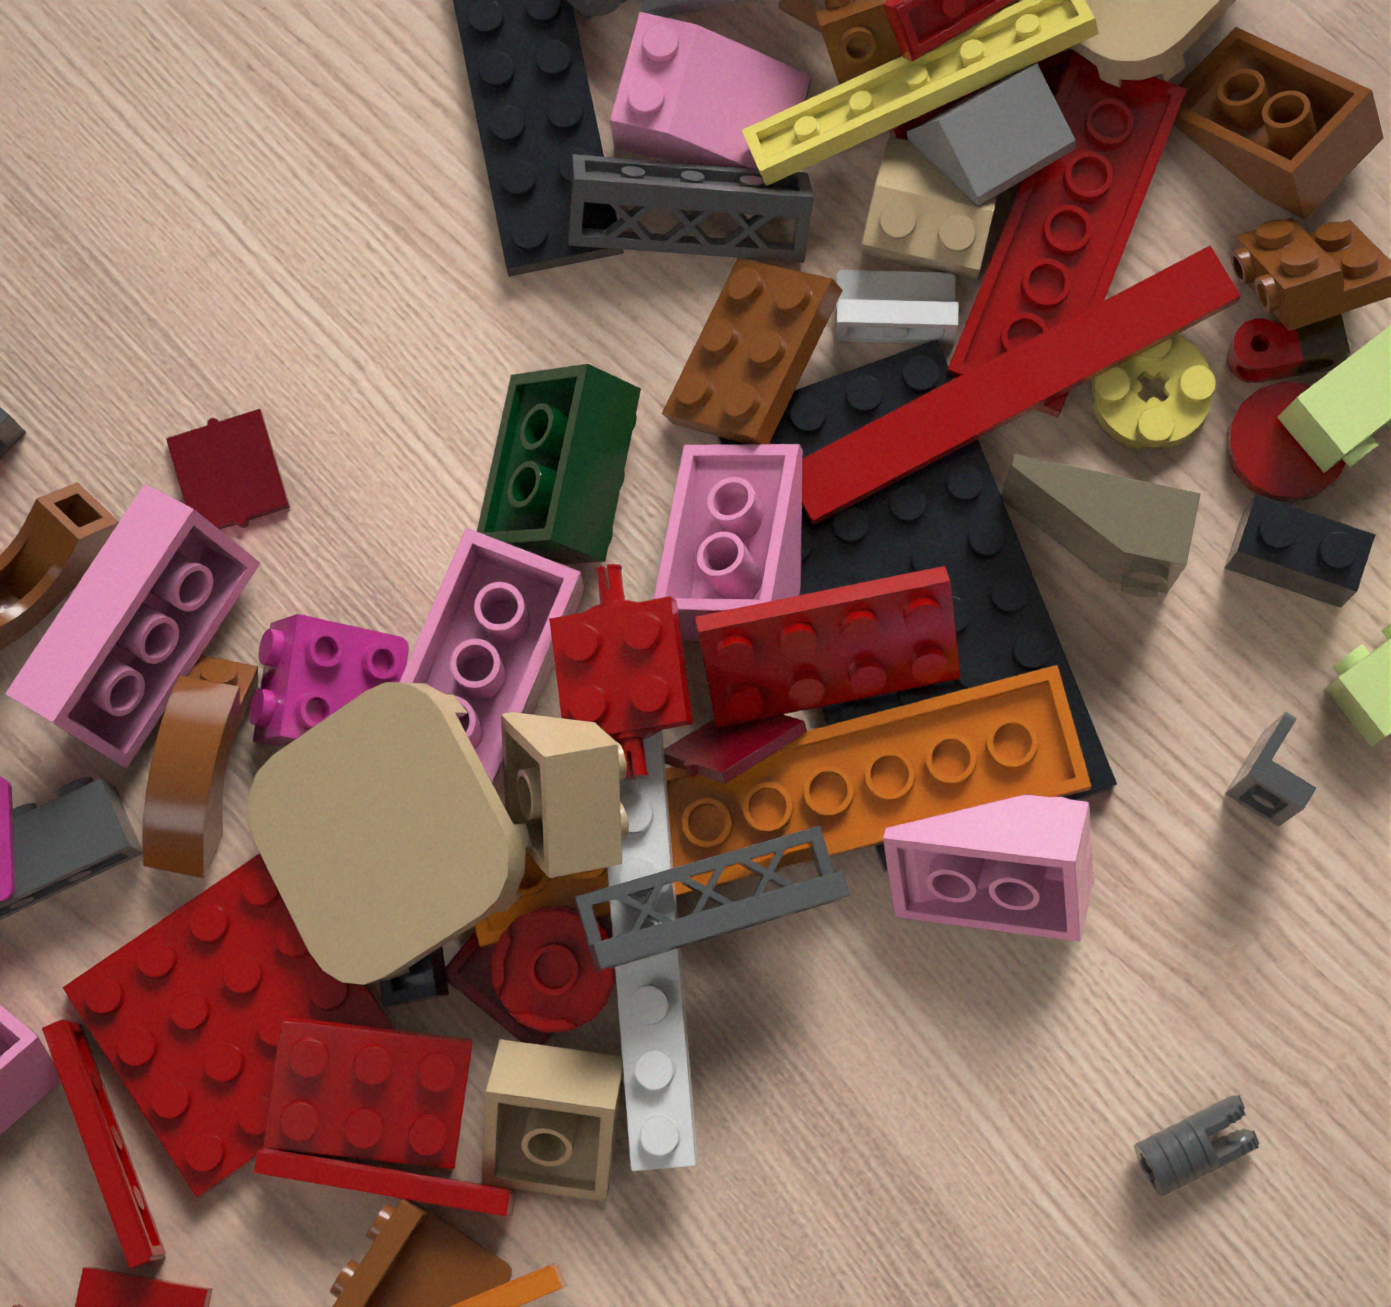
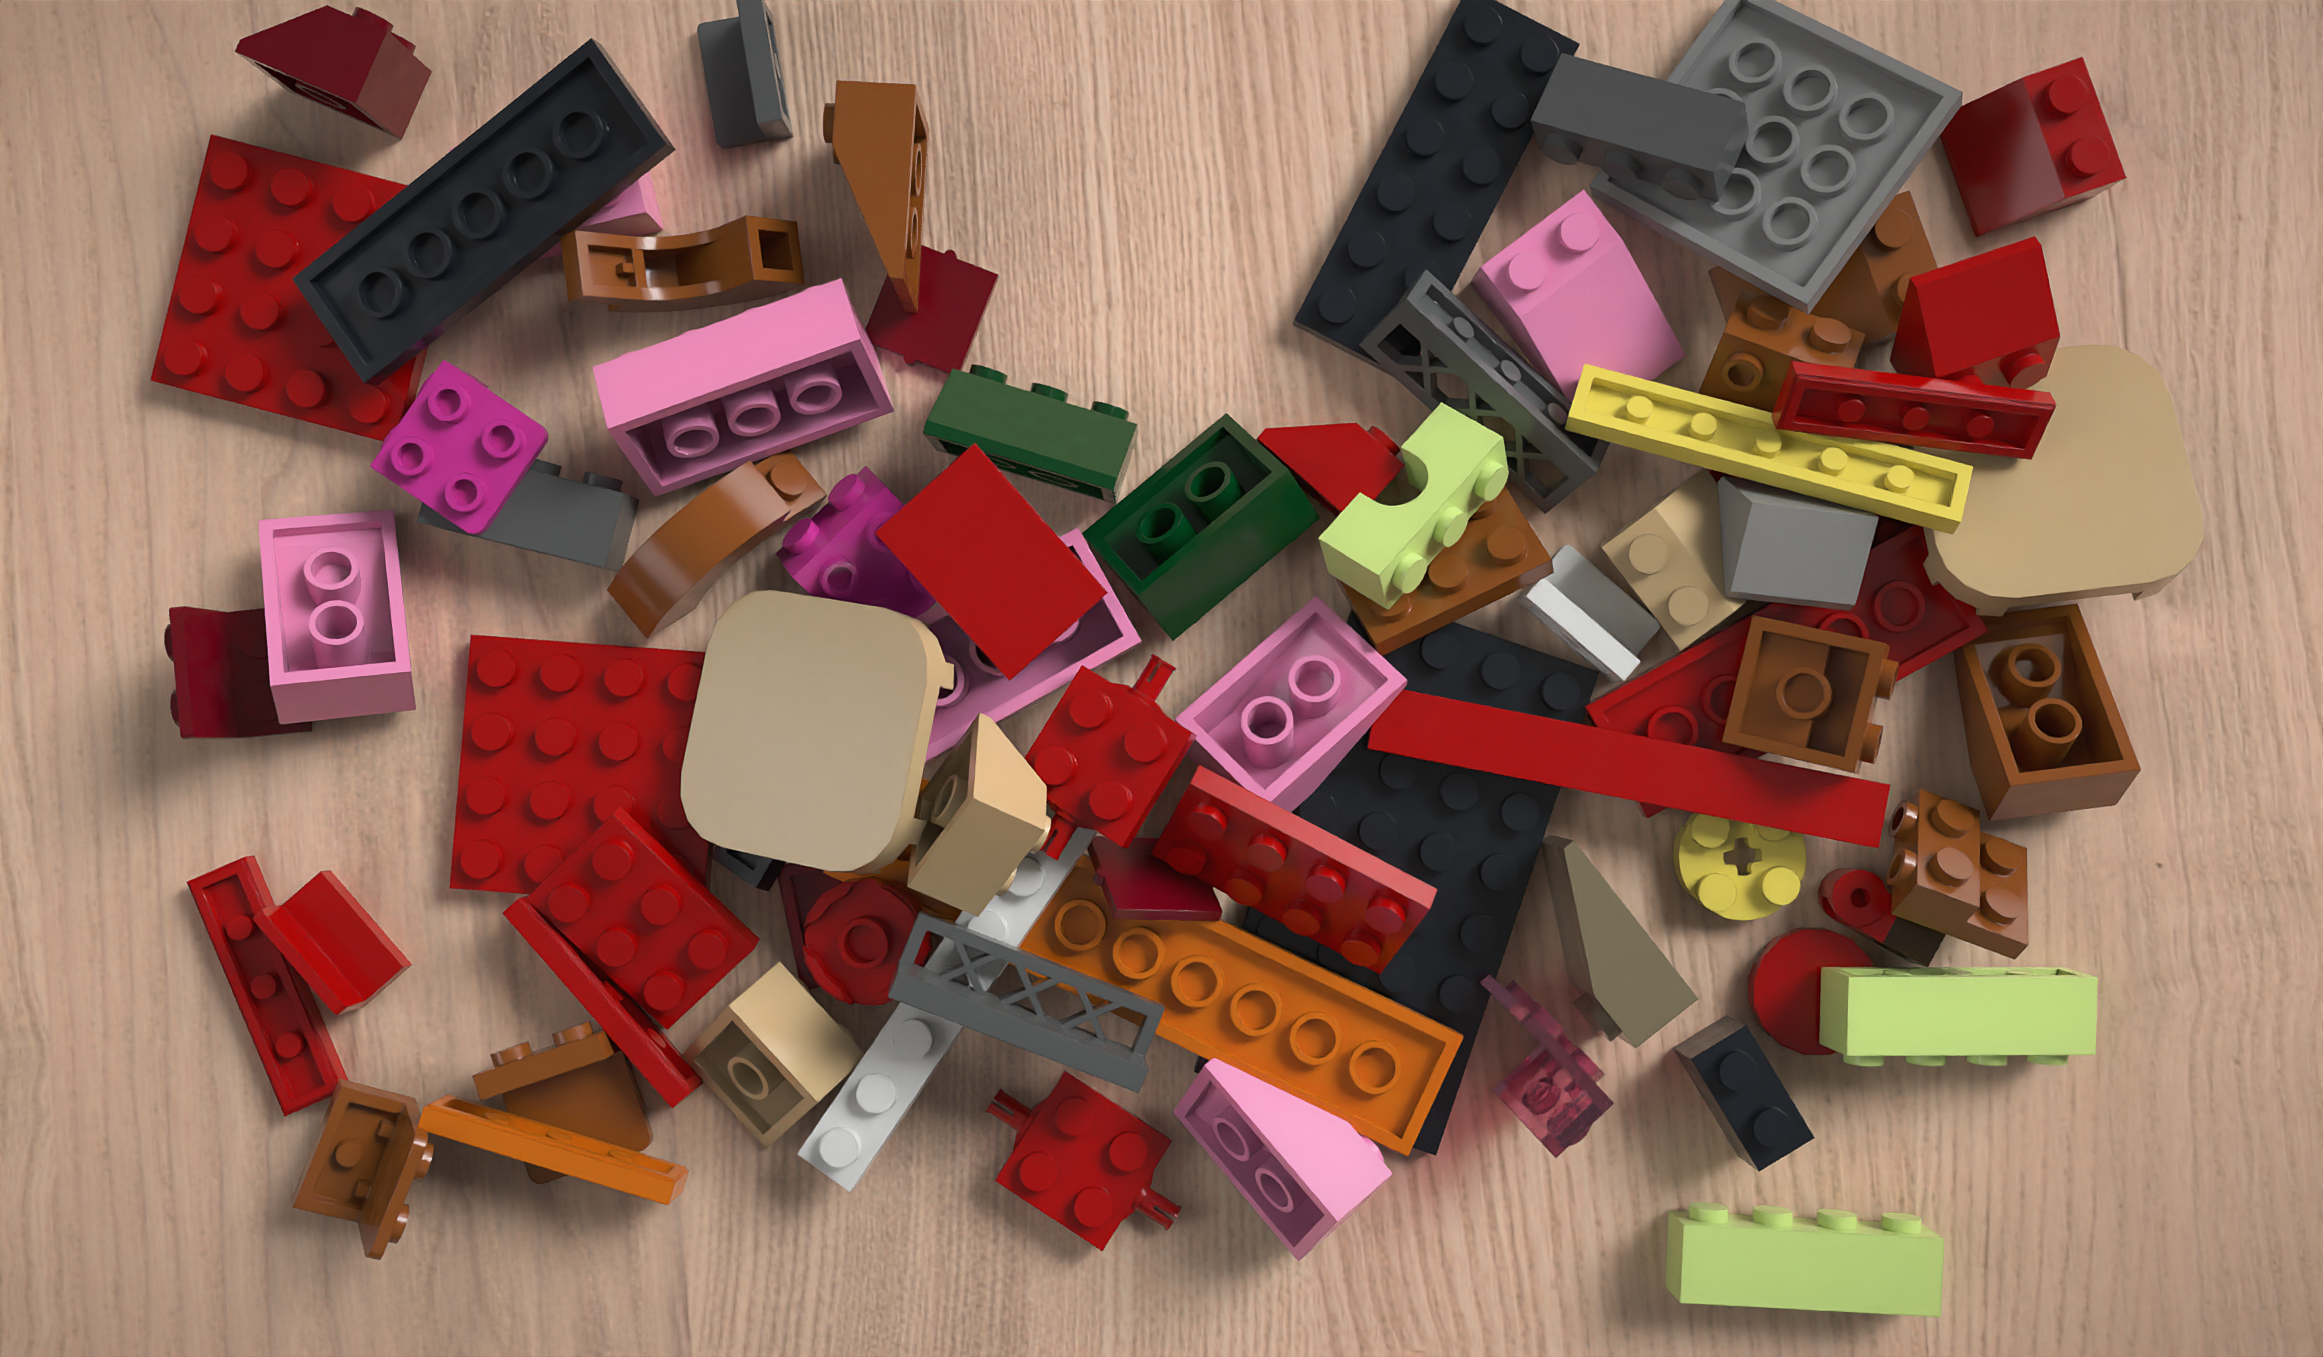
camera: 35 degrees right, 10 degrees up
(100, 380) = (883, 150): none -> dark orange slope
(104, 1143) = (408, 789): red tile -> none
(379, 497) = (1034, 432): none -> dark green slope
(421, 596) = (991, 561): none -> red tile
(624, 339) = (1335, 460): none -> red slope
(707, 362) = (1389, 547): none -> yellowish green arch
(856, 1006) = (1083, 1160): none -> red plate
(1098, 226) = (1810, 695): none -> dark orange plate
(1161, 644) = (1556, 1084): none -> clear pink bracket
(1267, 785) = (1554, 1243): dark grey panel -> none

